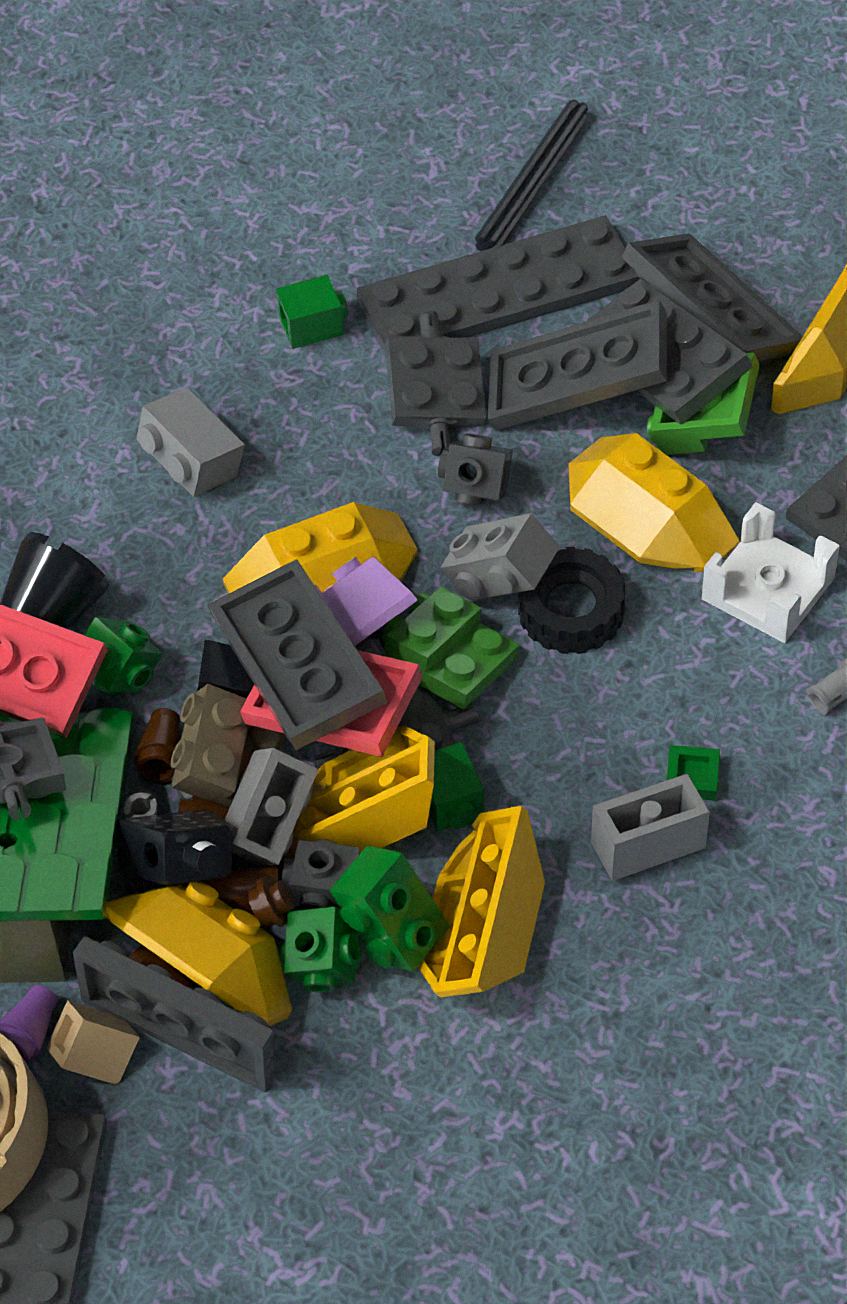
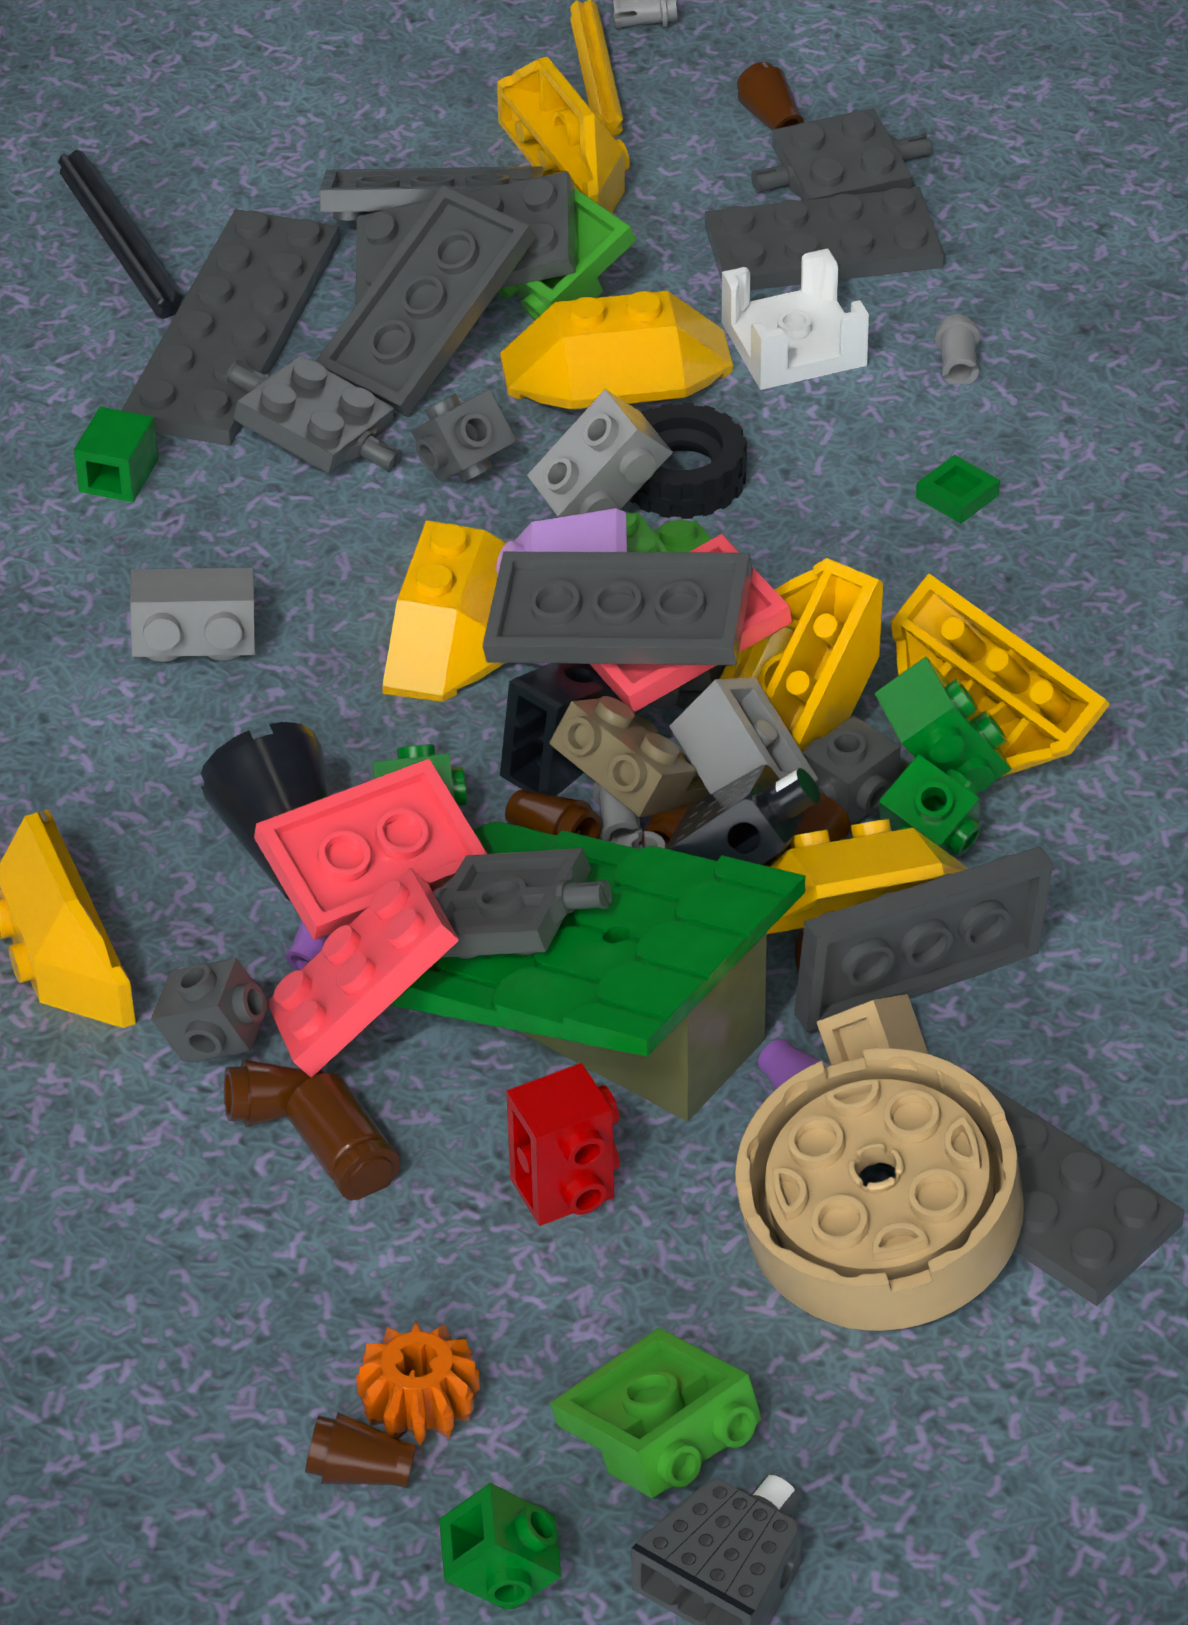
camera: 55 degrees left, 10 degrees down
(271, 901) = (856, 803): reddish brown plate -> none
(649, 827) = (1010, 529): light grey brick -> none

